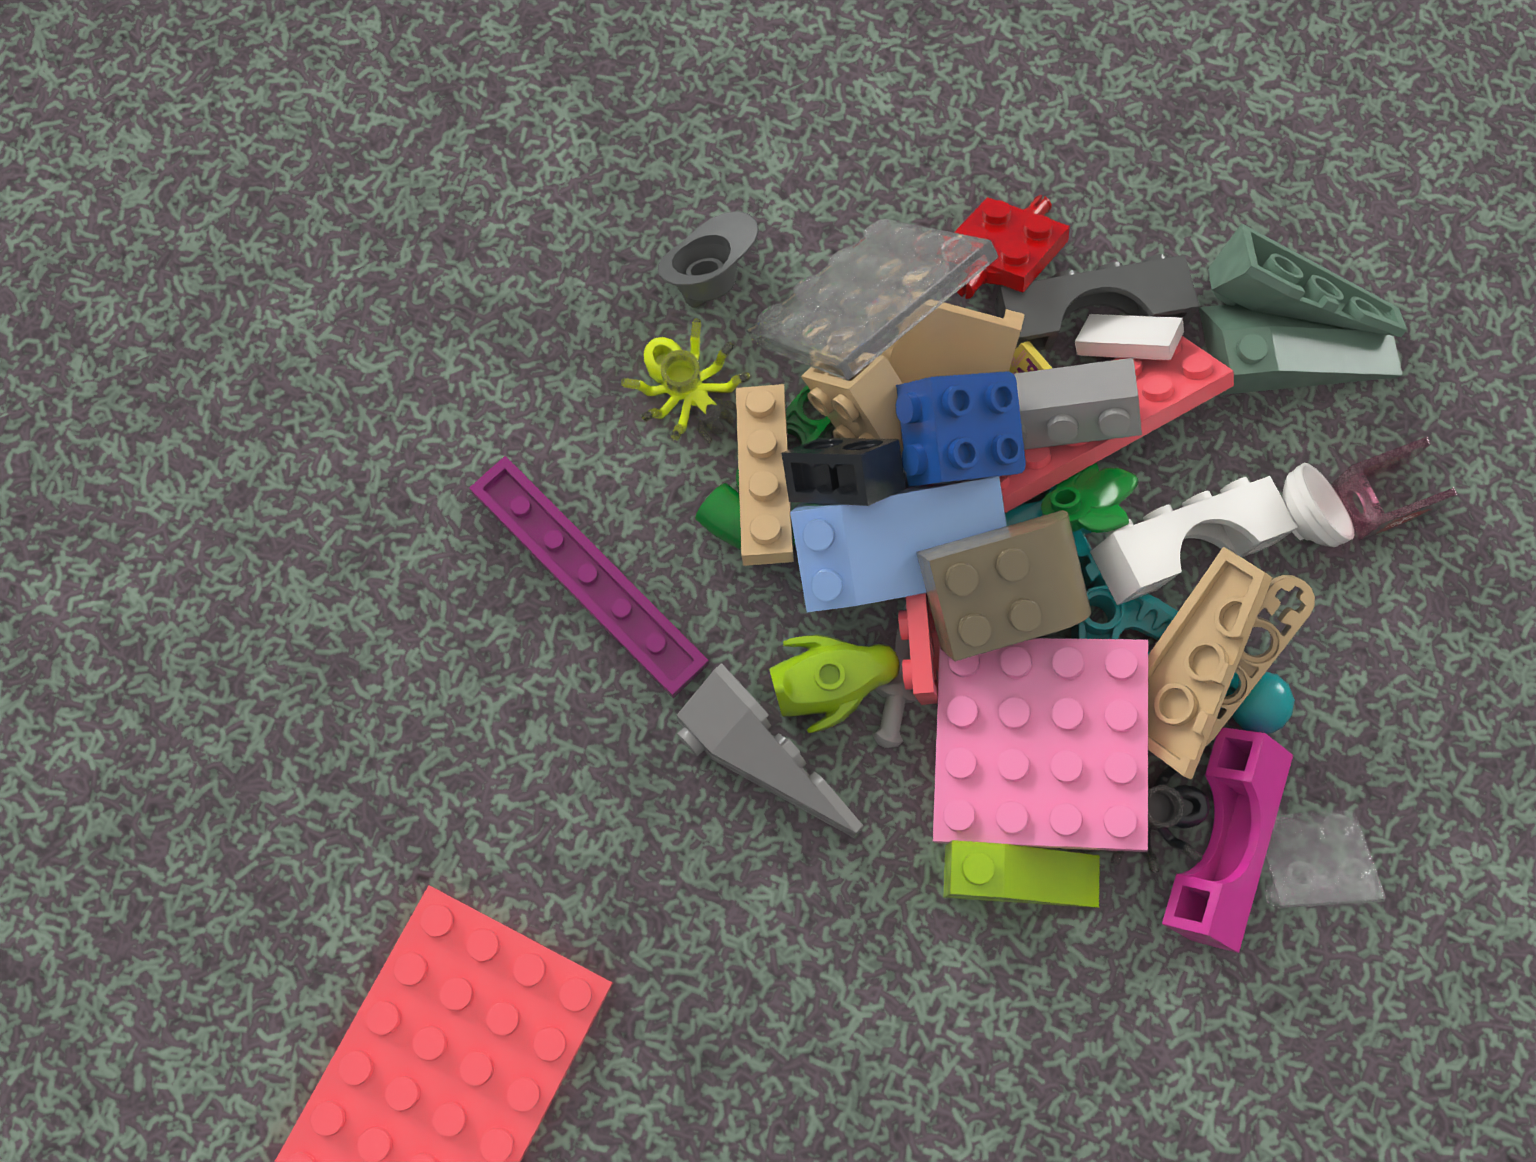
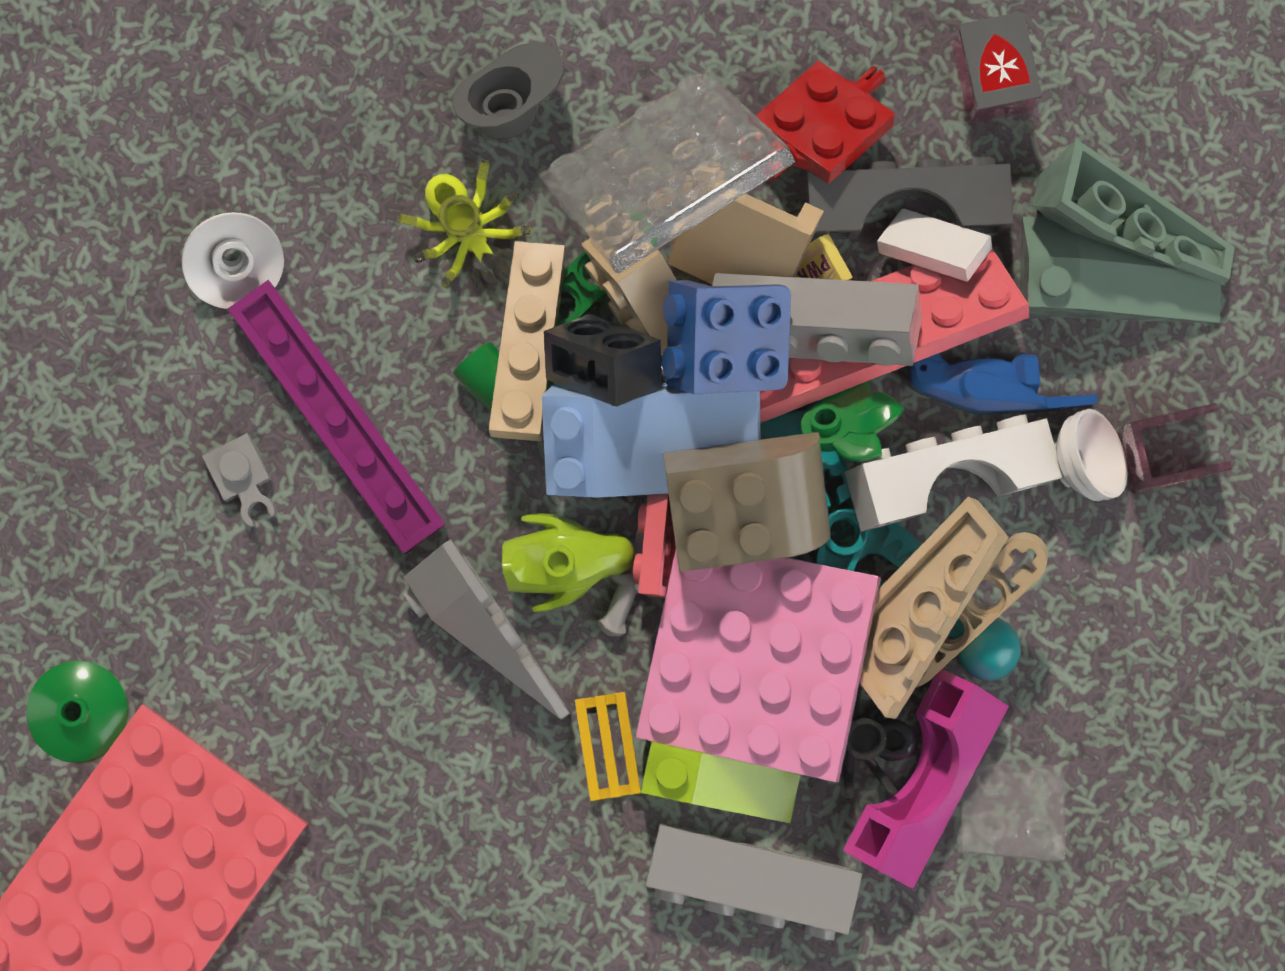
camera: 10 degrees right, 10 degrees up
(387, 911) = (102, 711): none -> green dish
(493, 439) = (224, 281): none -> white dish
(498, 643) = (239, 472): none -> light grey plate
(890, 815) = (614, 789): none -> yellow tile
(1076, 968) = (753, 879): none -> light grey brick
(1153, 178) = (996, 68): none -> piece
(1205, 457) = (989, 385): none -> blue animal

